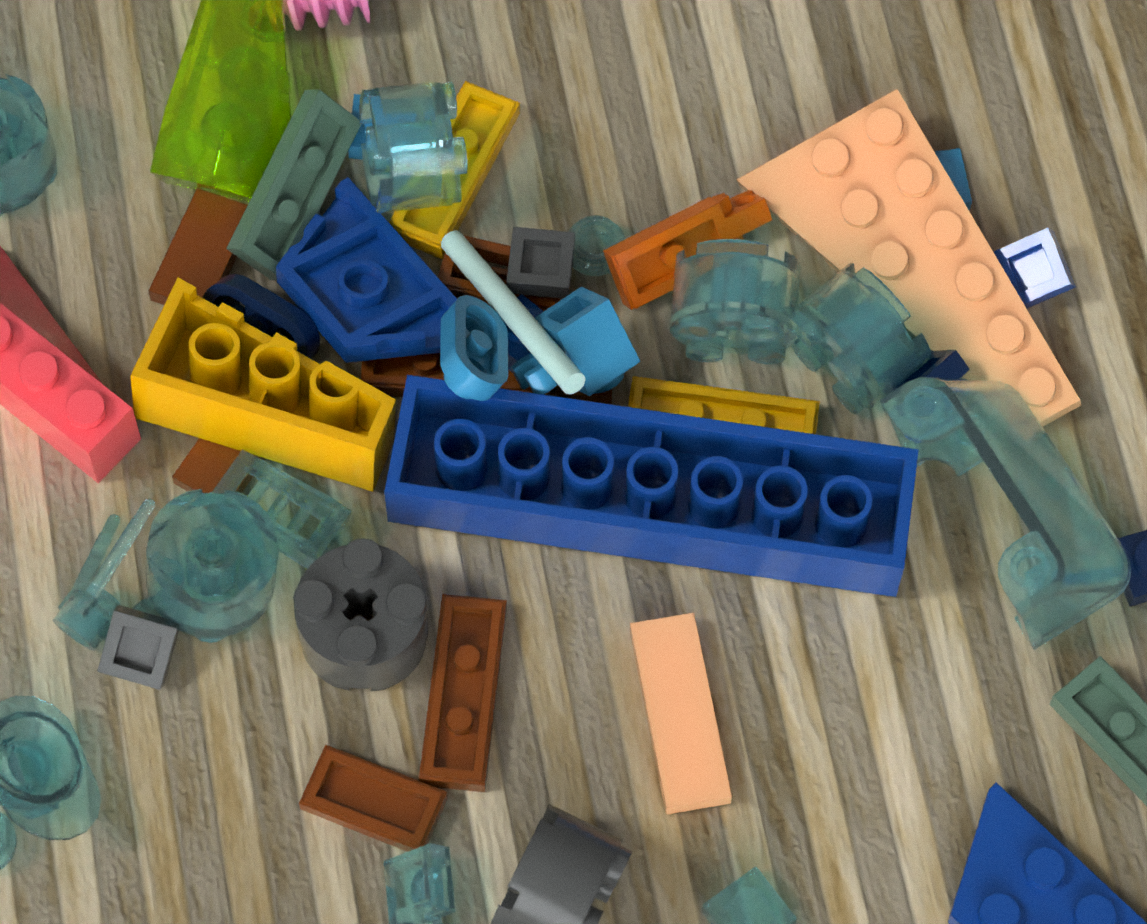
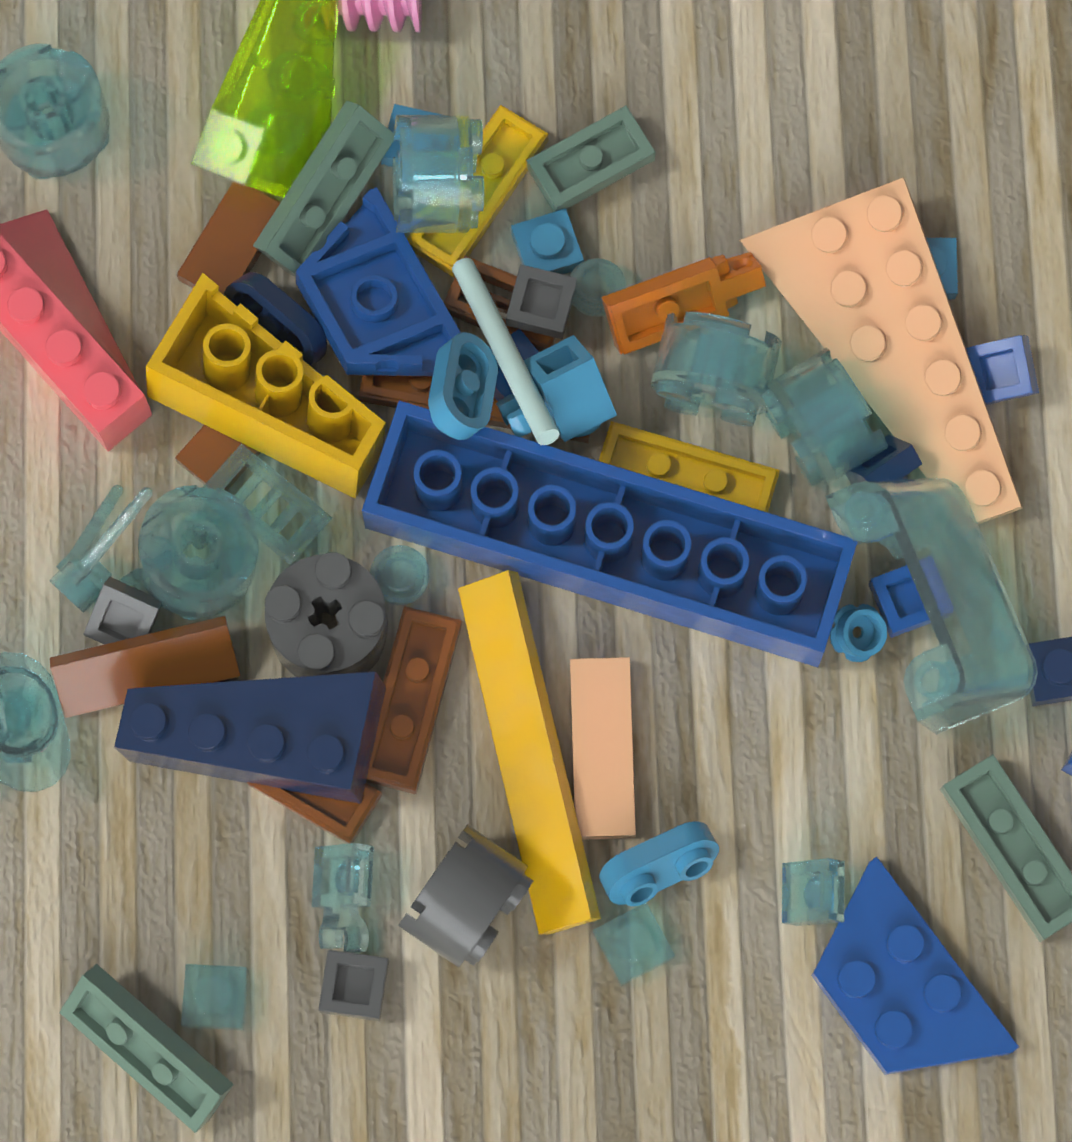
camera: 10 degrees right, 10 degrees up
(169, 695) = (175, 656): none -> dark orange tile
(318, 740) = (272, 732): none -> dark blue wedge
(437, 561) = (400, 574): none -> clear light blue plate
(536, 206) = (548, 243): none -> dark azure plate
(568, 122) = (591, 159): none -> sand green plate
(602, 728) = (529, 753): none -> yellow tile
(763, 822) = (658, 863): none -> dark azure plate
(935, 828) = (813, 892): none -> clear light blue plate
(947, 549) = (872, 632): none -> dark azure plate
(977, 511) = (898, 601): none -> blue plate

